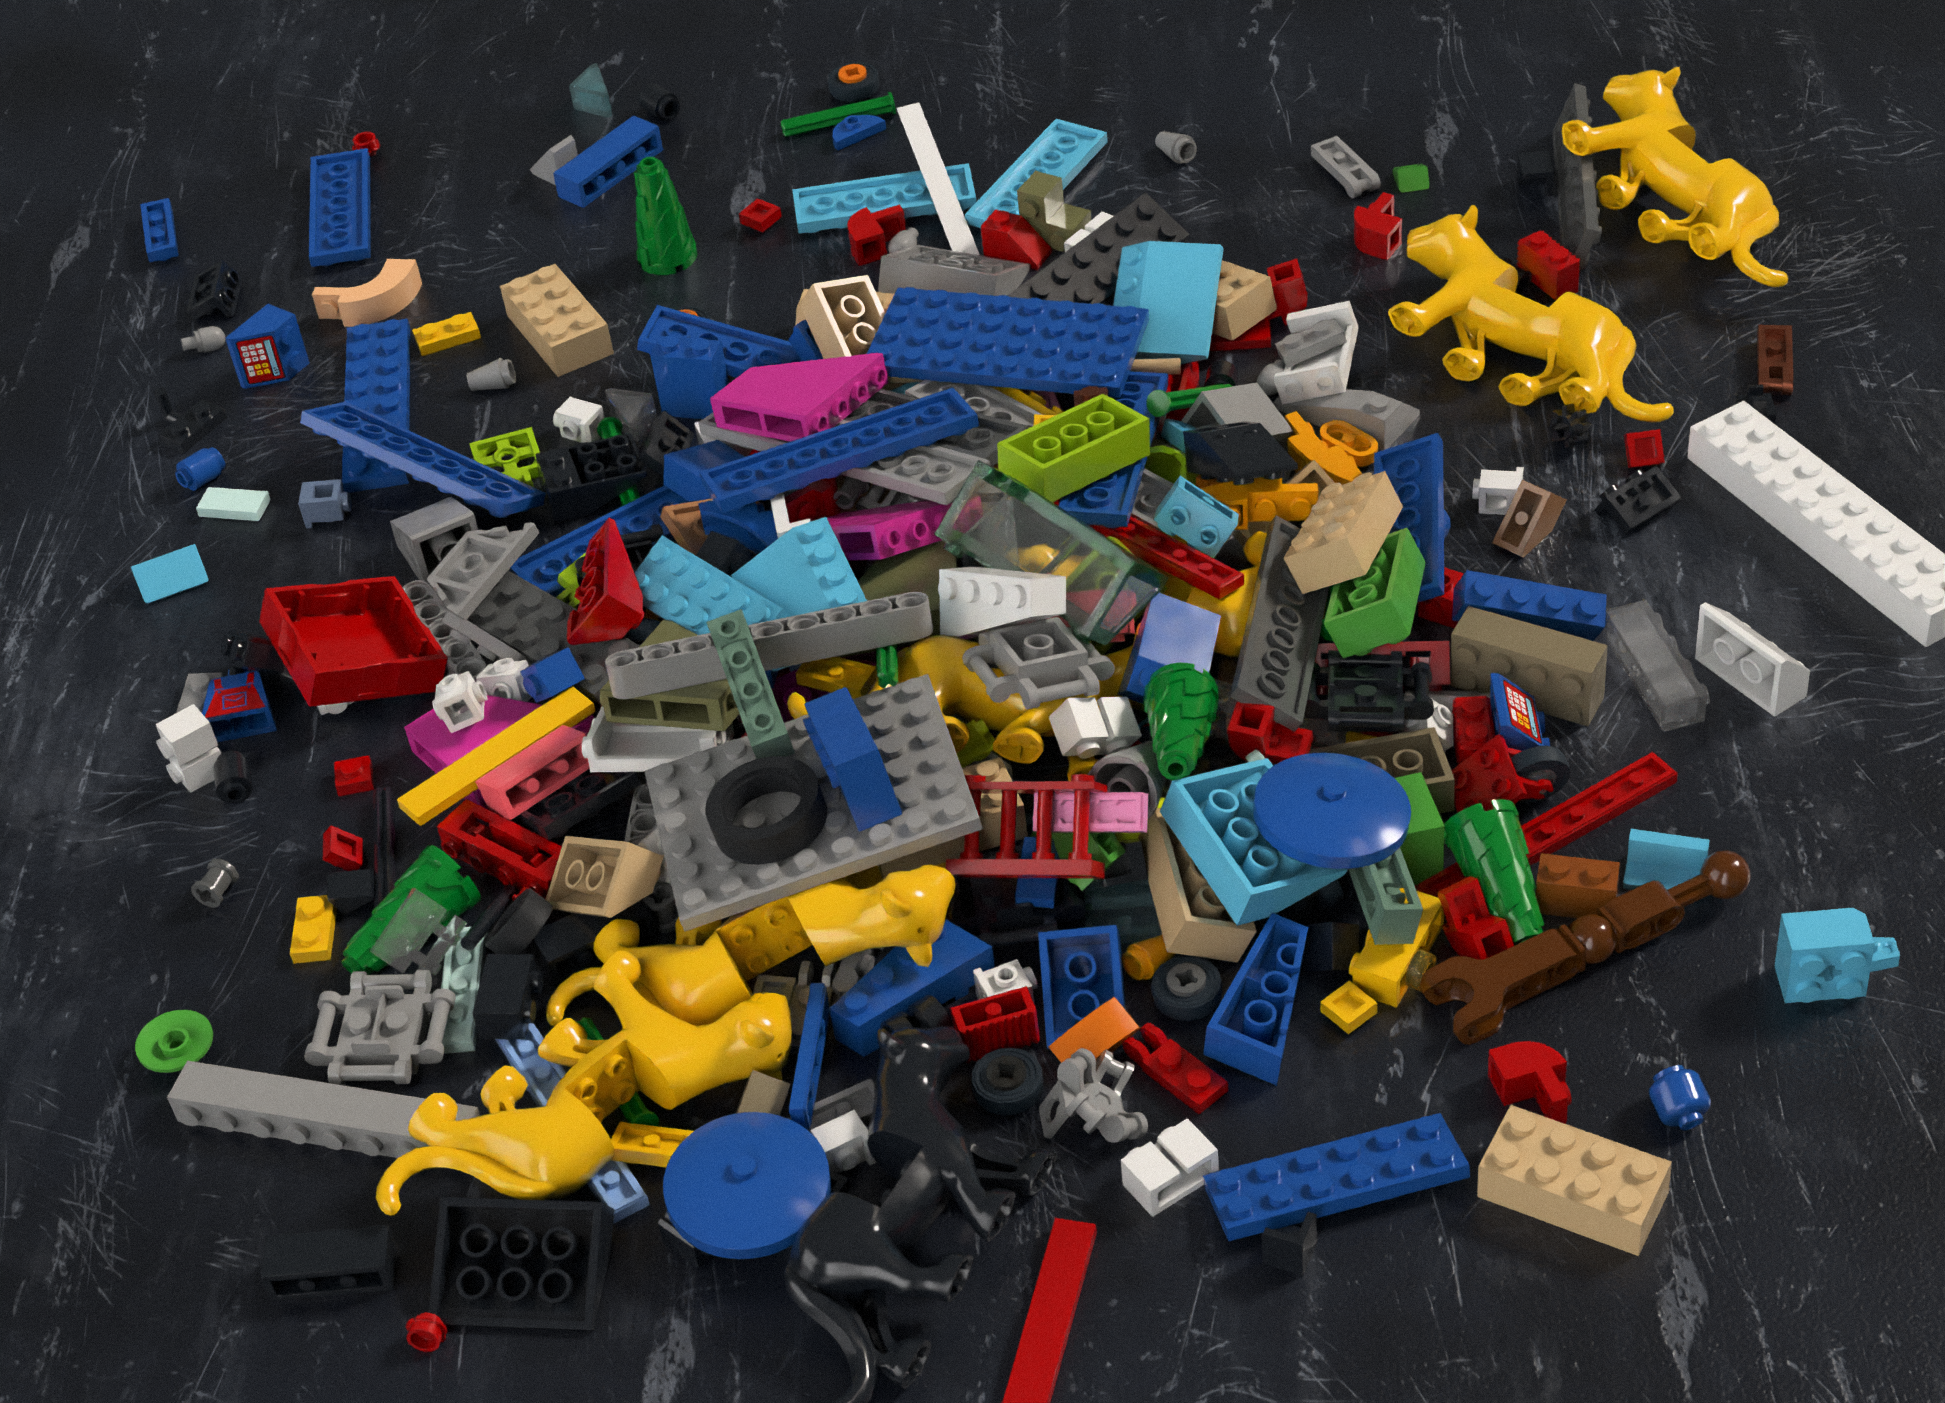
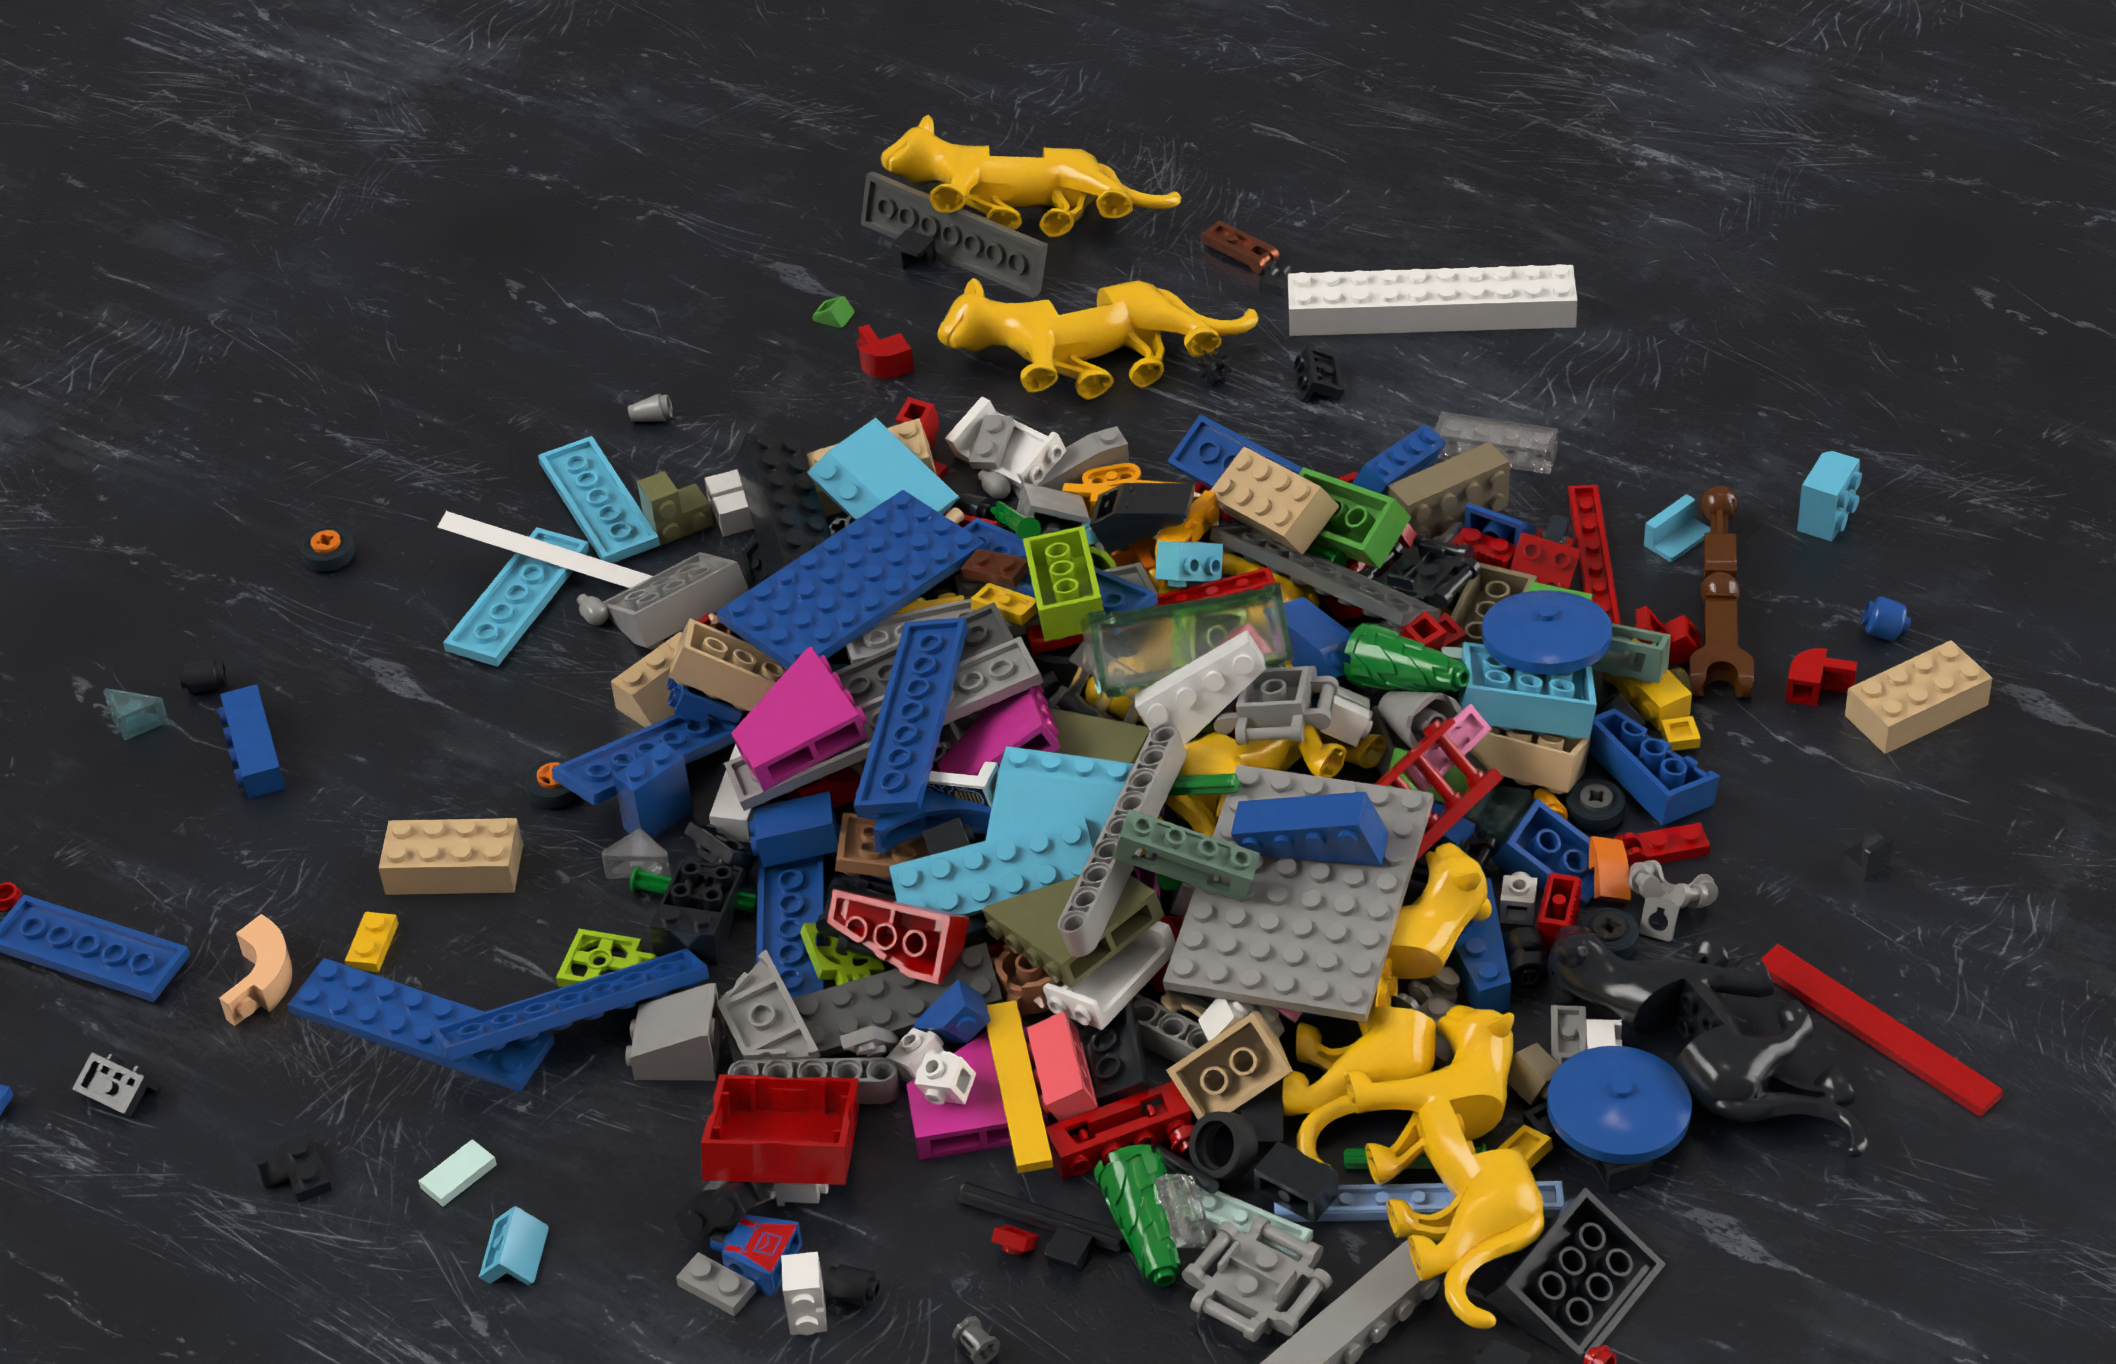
camera: 60 degrees left, 0 degrees up
(200, 468) = (385, 1177): blue brick -> none
(205, 340) = (181, 1115): light grey cylinder -> none
(267, 348) = (277, 1057): blue slope -> none
(313, 930) = (1086, 1294): yellow plate -> none
(323, 501) = (536, 1102): sand blue brick -> none
(353, 775) = (919, 1205): red plate -> none
(494, 375) = (478, 928): light grey cone -> none
(555, 159) = (210, 775): light grey slope -> none
(578, 420) = (610, 893): white brick -> none
(661, 221) = (417, 737): green cone -> none
(760, 215) = (449, 677): red plate -> none
(776, 840) = (1320, 941): black tyre -> none
(810, 1056) = (1527, 1026): blue tile -> none
(835, 115) = (369, 568): green axle -> none
(856, 128) = (393, 576): blue plate -> none
(871, 231) = (559, 622): red brick -> none
(1013, 239) = (667, 545): red slope -> none
(1170, 1168) = (1757, 883): white piece -> none
(1335, 1176) = (1826, 808): blue plate -> none
(1345, 166) = (786, 336): light grey plate -> none
(1495, 851) = (1624, 590): green cone -> none
(1496, 490) = (1250, 424): white brick -> none
(1528, 518) = (1289, 430): medium nougat slope -> none
(1551, 265) = (1027, 287): red brick -> none
(1575, 885) = (1667, 576): dark orange piece -> none
(1644, 448) = (1271, 346): red plate -> none
(1749, 661) = (1534, 399): white slope -> none

